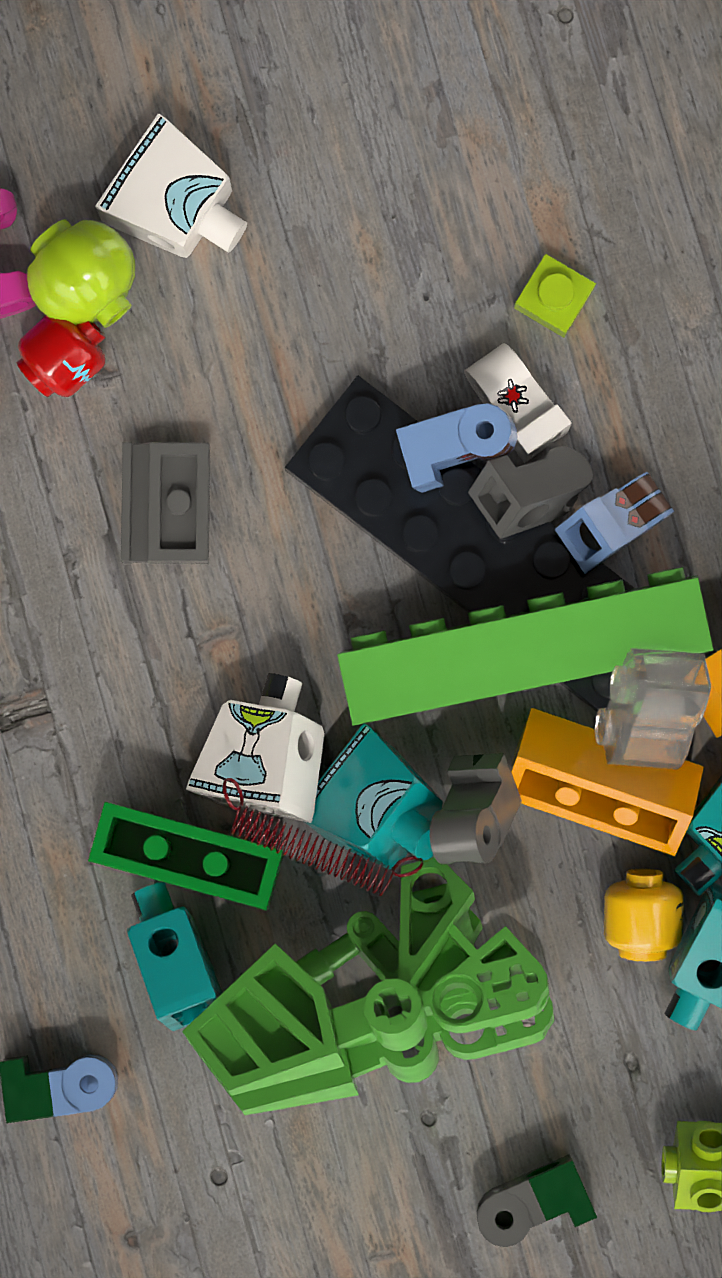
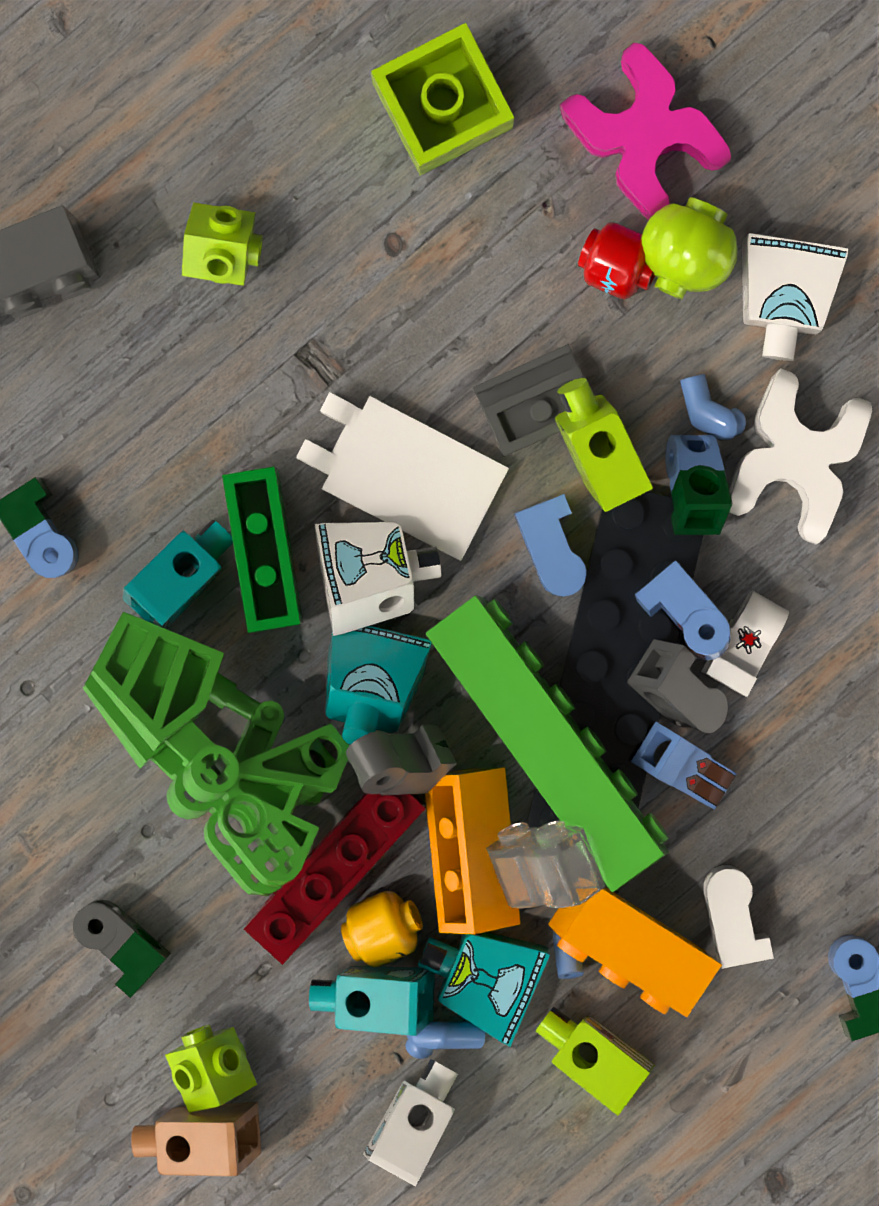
camera: 65 degrees right, 5 degrees up
(178, 672) = (406, 473): none -> white tile
(242, 454) = (600, 446): none -> lime torso
(261, 336) = (707, 414): none -> medium blue arm
(312, 848) = (306, 647): dark red piece -> none
(324, 559) = (557, 567): none -> medium blue leg
(329, 375) = (697, 485): none -> dark green leg
(348, 261) = (799, 456): none -> white piece
(554, 295) = (847, 634): lime plate -> none
(559, 938) = (332, 871): none -> dark red brick

